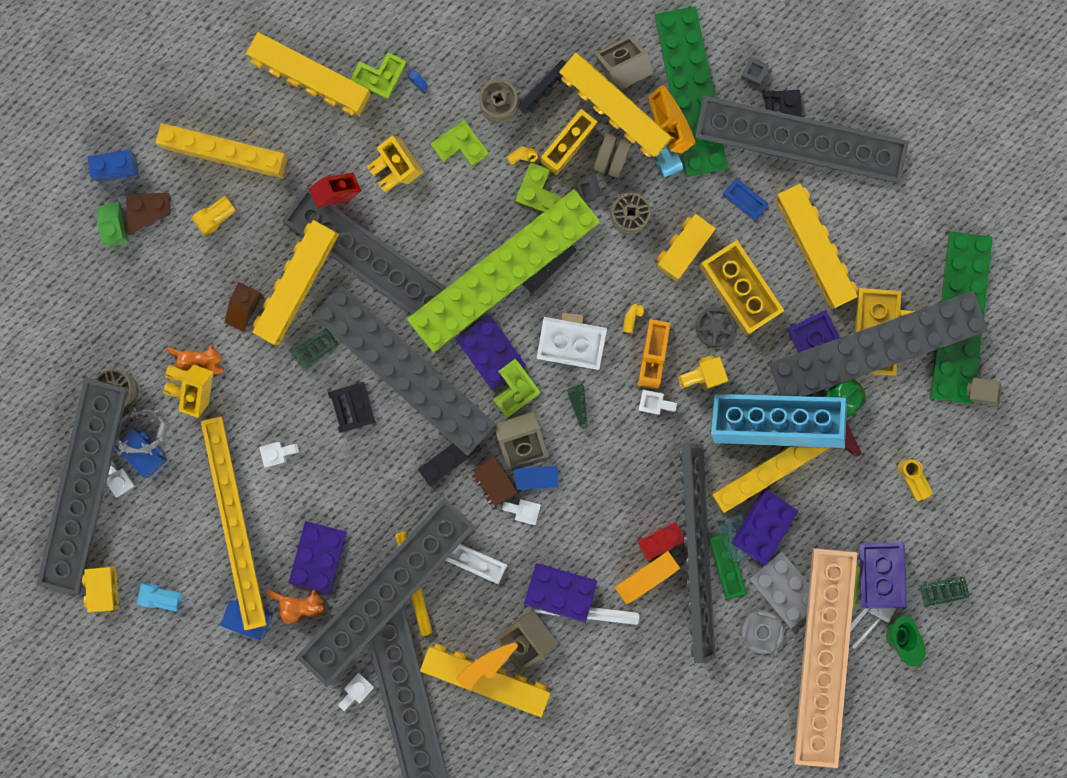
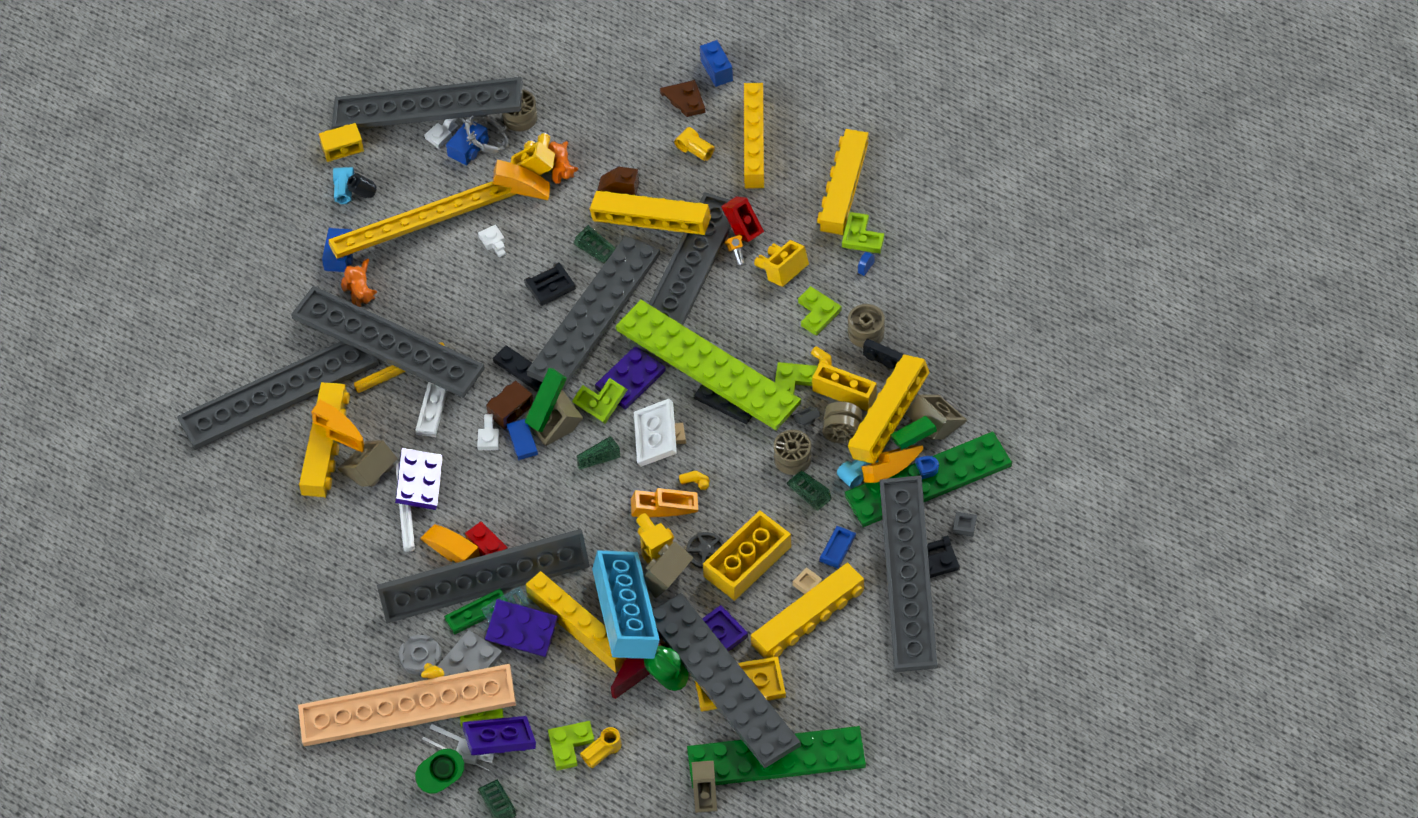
camera: 75 degrees right, 30 degrees down
(112, 225) = (662, 75): bright green slope -> none
(170, 579) = (361, 186): none -> black brick
(215, 408) = (520, 180): none -> light orange slope
(317, 557) = (406, 291): dark purple plate -> none
(357, 690) = (293, 347): white plate -> none
(360, 205) = (734, 244): none -> piece
(513, 444) = (545, 399): none -> green tile
(650, 89) = (913, 432): none -> green tile
(653, 402) = (617, 513): white plate -> none
(685, 87) = (927, 466): none -> blue tile
(685, 195) = (818, 498): none -> clear green slope
(685, 247) = (775, 503): yellow brick -> none
(747, 368) = (667, 568): none -> dark tan slope
(780, 238) = (806, 580): none -> tan plate
(798, 625) = (432, 671): none -> yellow animal
(891, 509) = (564, 740): none -> lime plate

